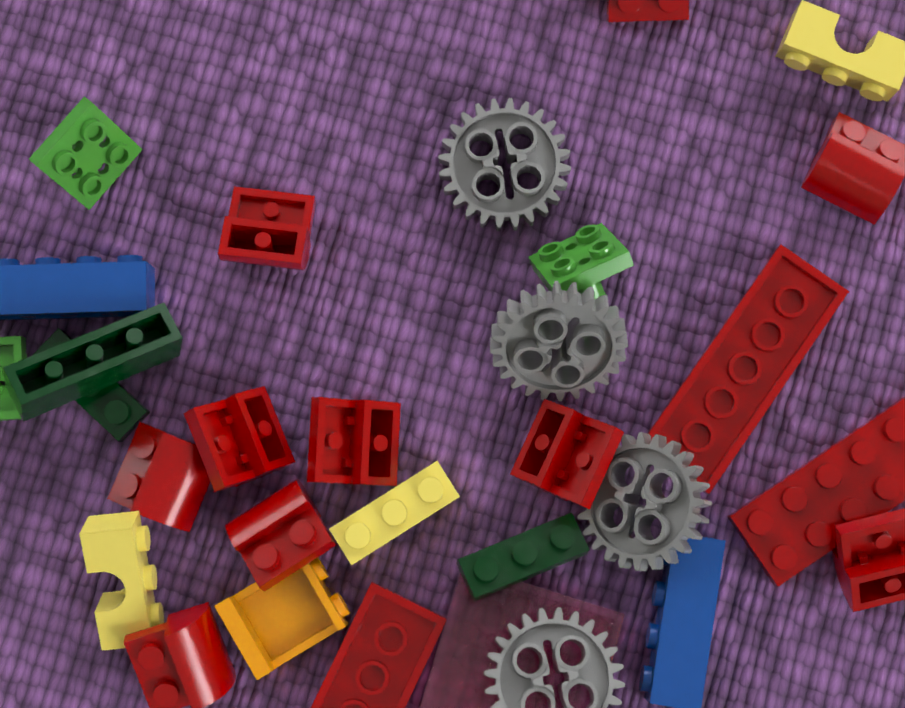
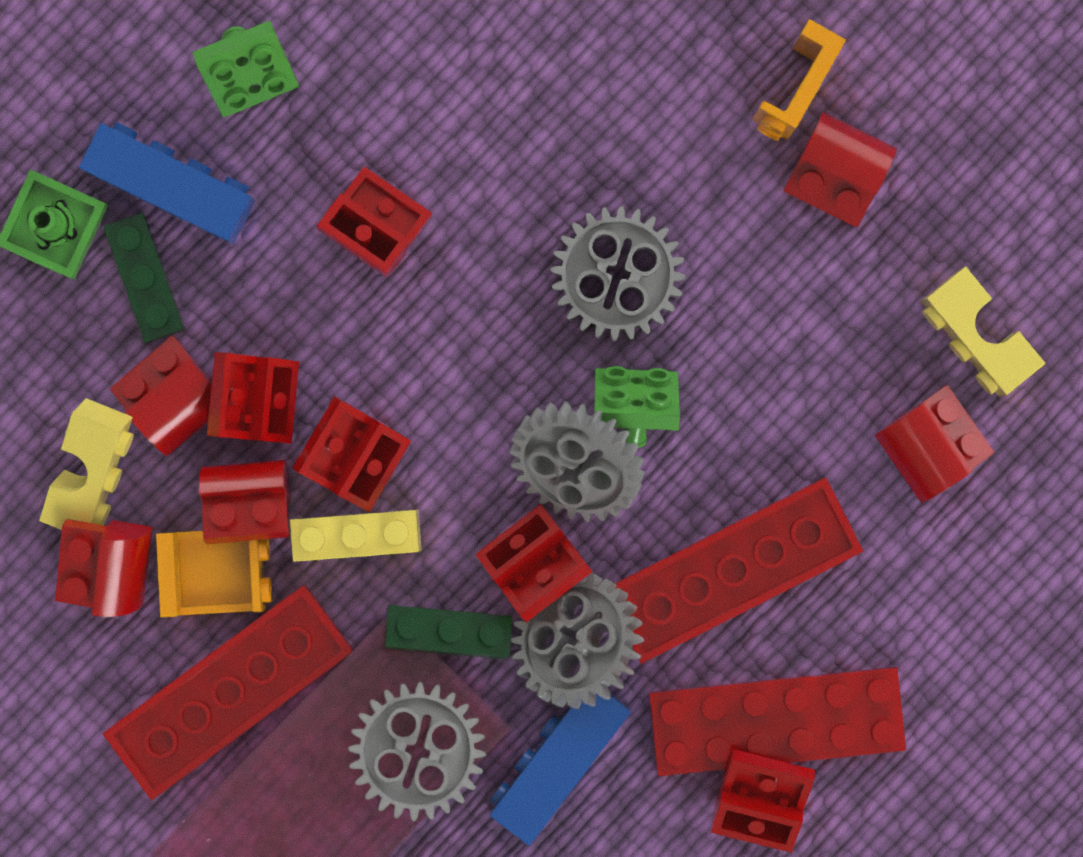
camera: 30 degrees right, 5 degrees up
(92, 361) = (158, 264): dark green brick -> none

